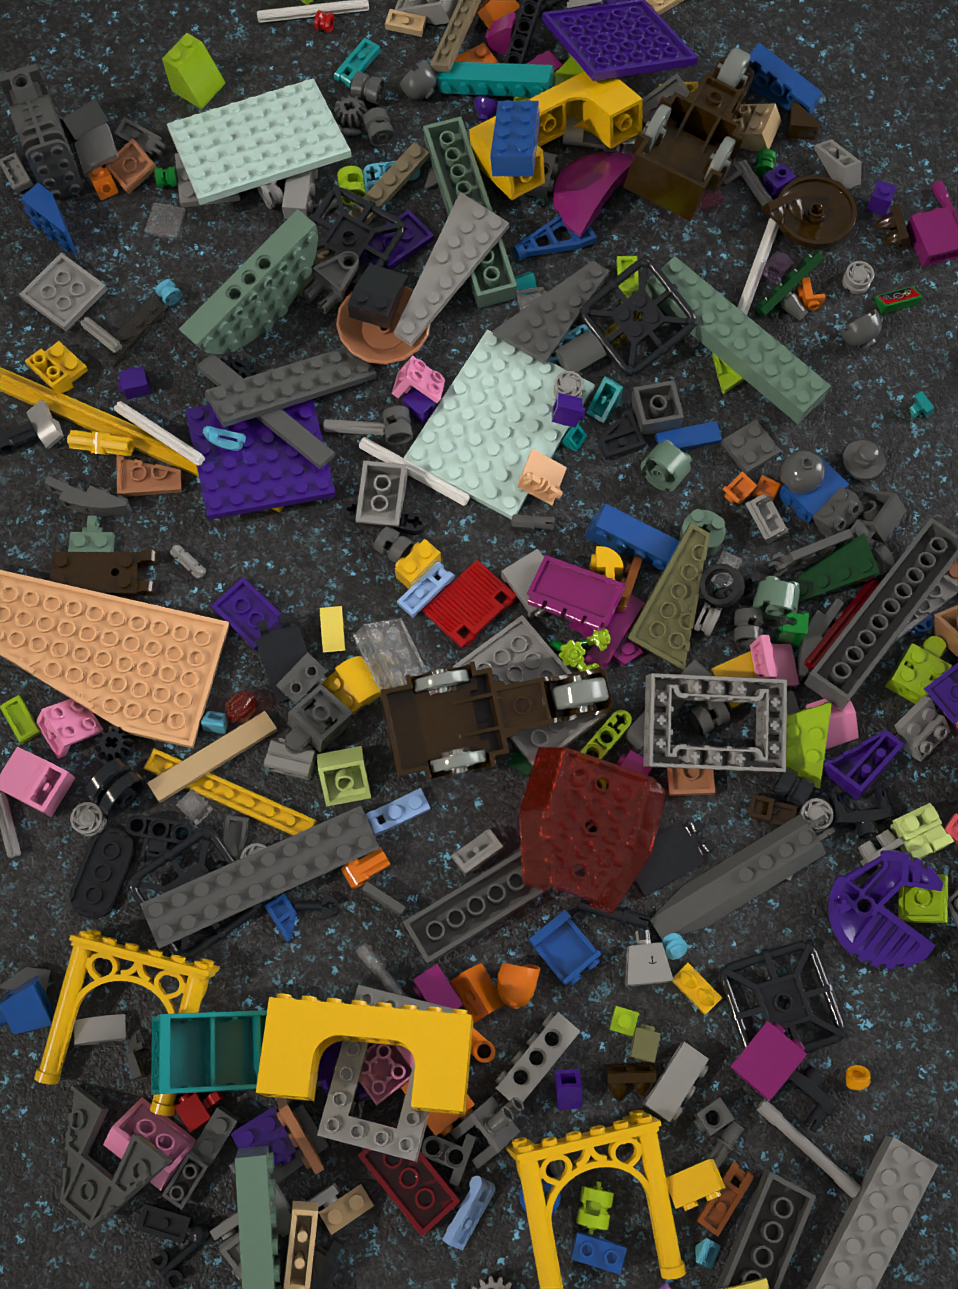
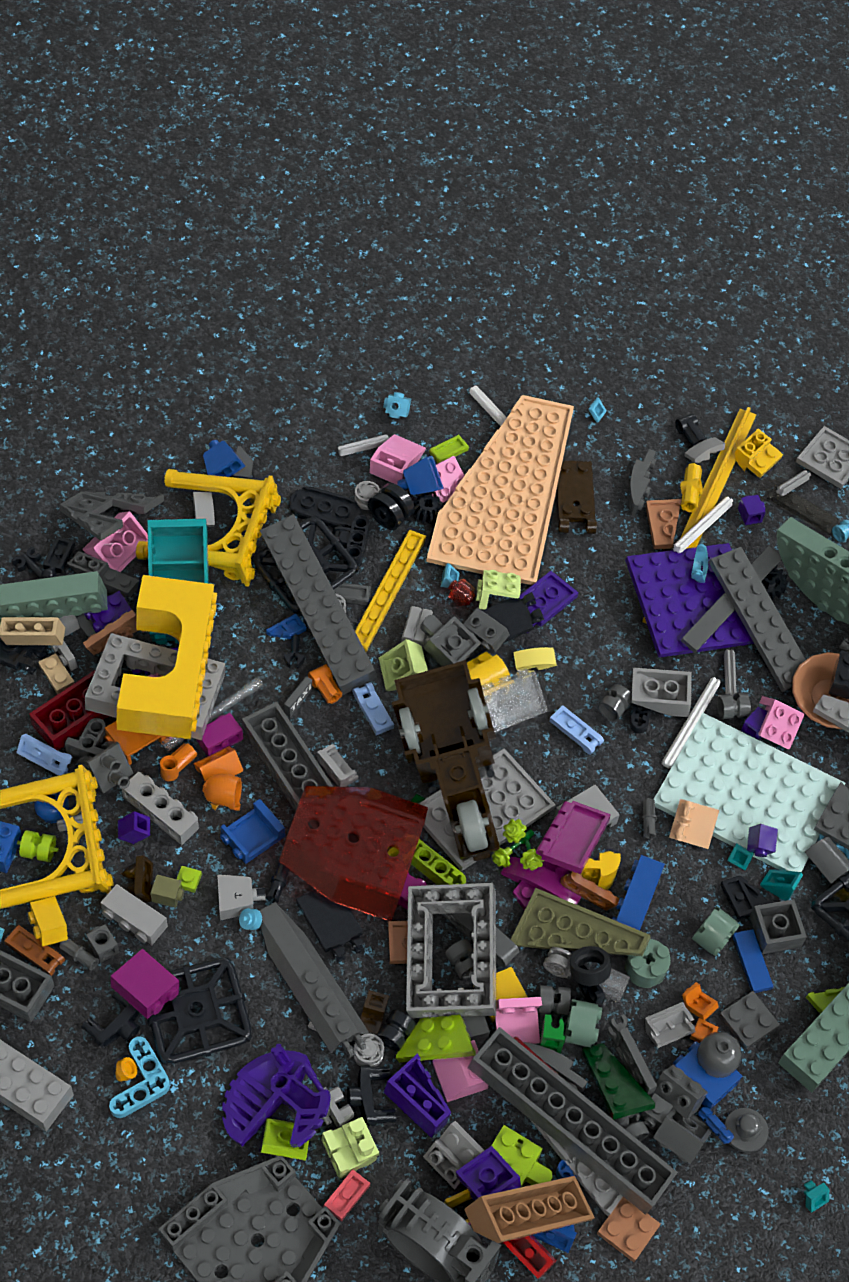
camera: 85 degrees right, 15 degrees down
(76, 748) = (421, 477): none -> blue torso
(92, 538) = (606, 488): sand green hinge -> none
(188, 561) = (590, 554): light grey axle -> none
(194, 806) = (376, 562): clear brick -> none
(196, 1110) = (136, 567): red brick -> none
(212, 757) = (419, 574): tan tile -> none
(240, 663) = (497, 584): none -> yellowish green bracket
(417, 563) = (599, 720): yellow brick -> none
(469, 603) = (564, 764): red window -> none
(568, 384) = (789, 845): light grey wheel -> none
(696, 989) = (213, 939): yellow tile -> none
(839, 1176) = (96, 998): light grey piece -> none
(862, 1050) = (150, 1079): none -> medium azure beam
(867, 482) = (715, 1125): none -> blue axle

